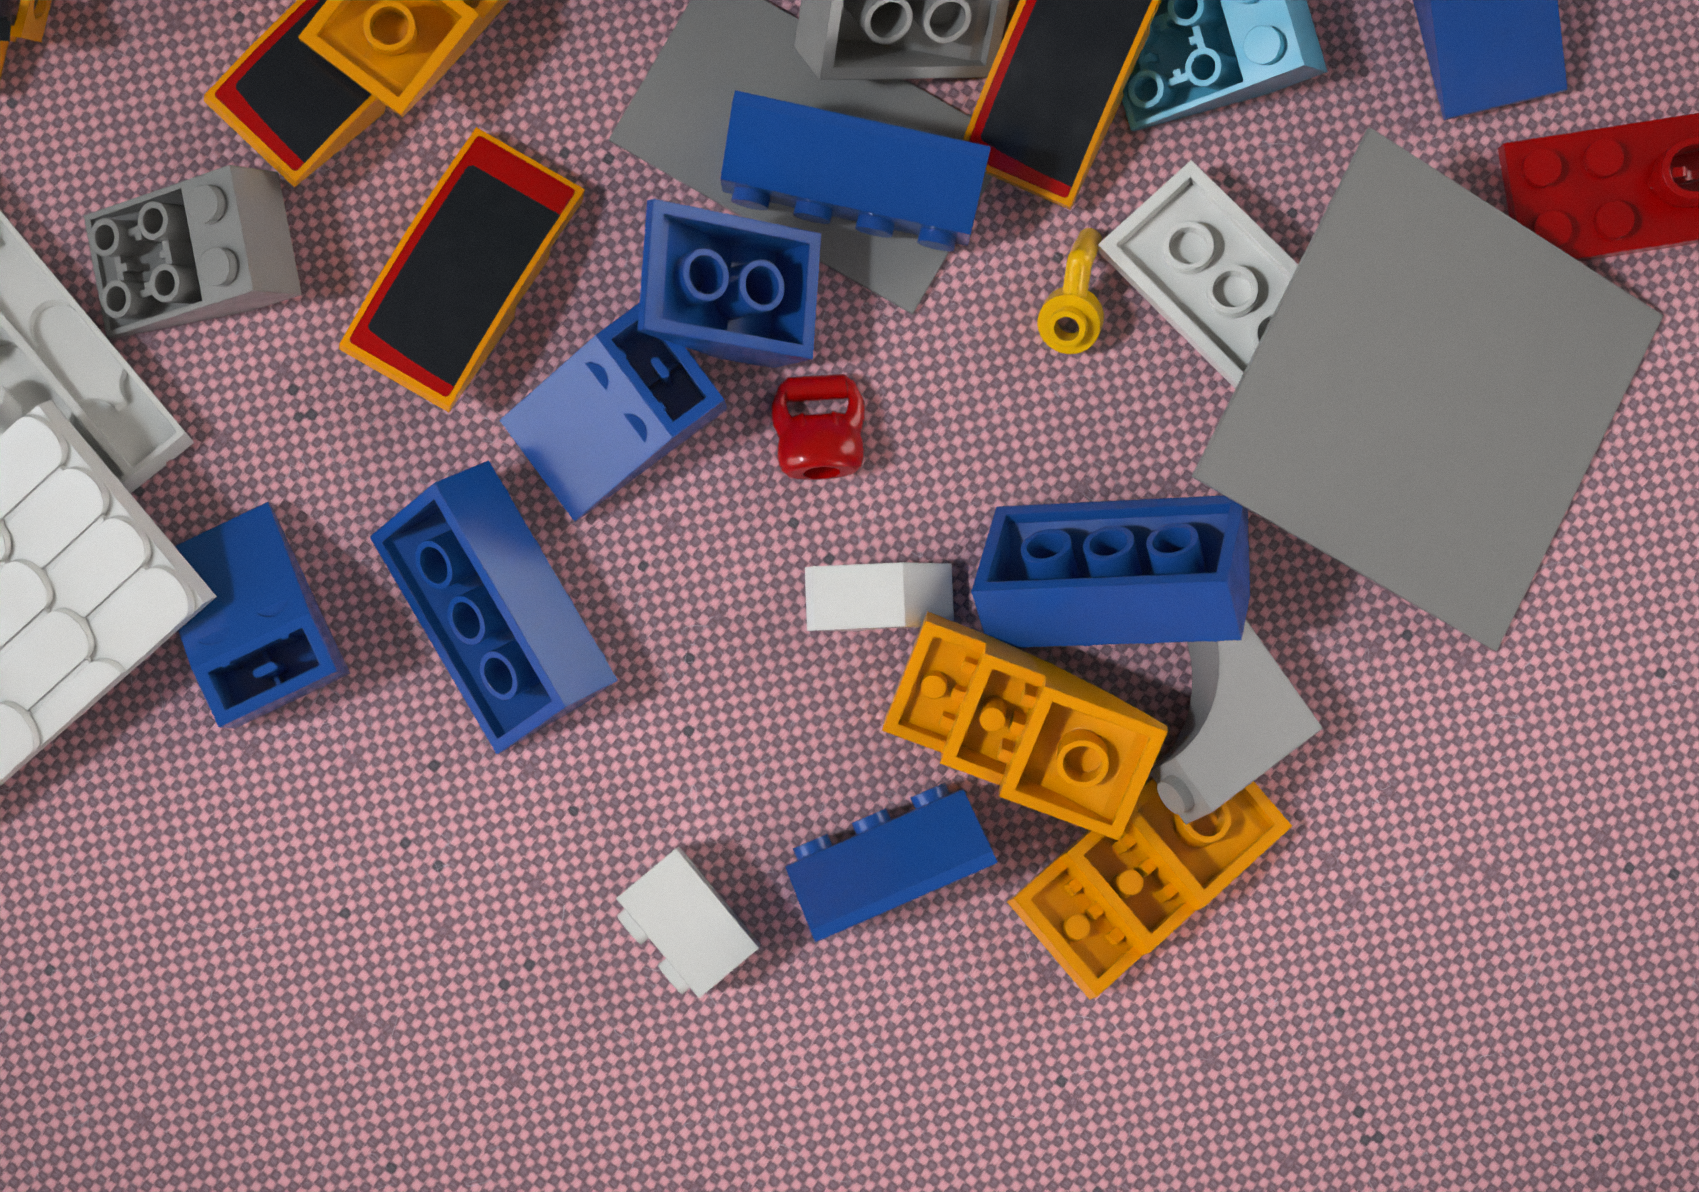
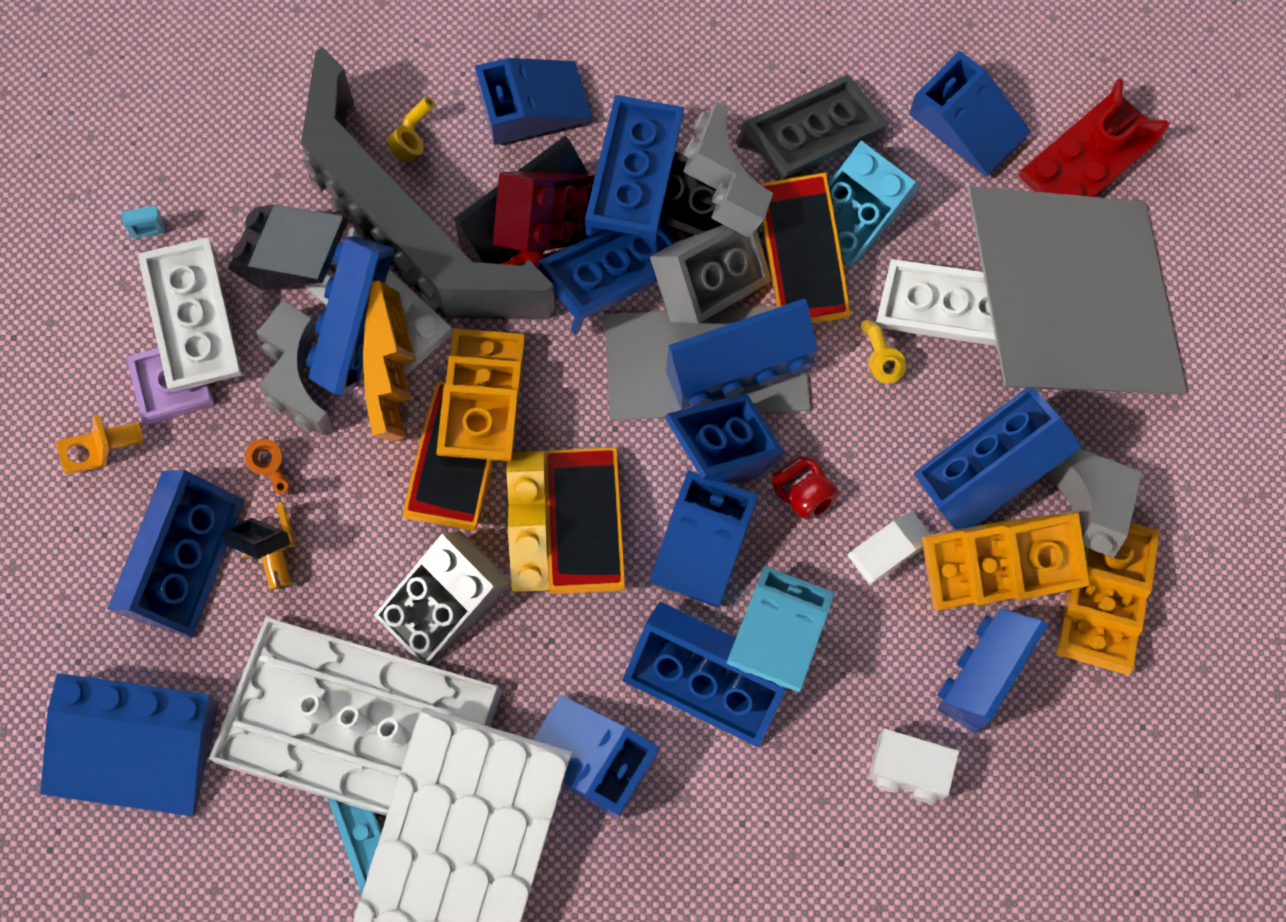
camera: 35 degrees left, 15 degrees down
(374, 217) = (527, 522): none -> yellow arch
(621, 615) = (781, 629): none -> medium azure slope

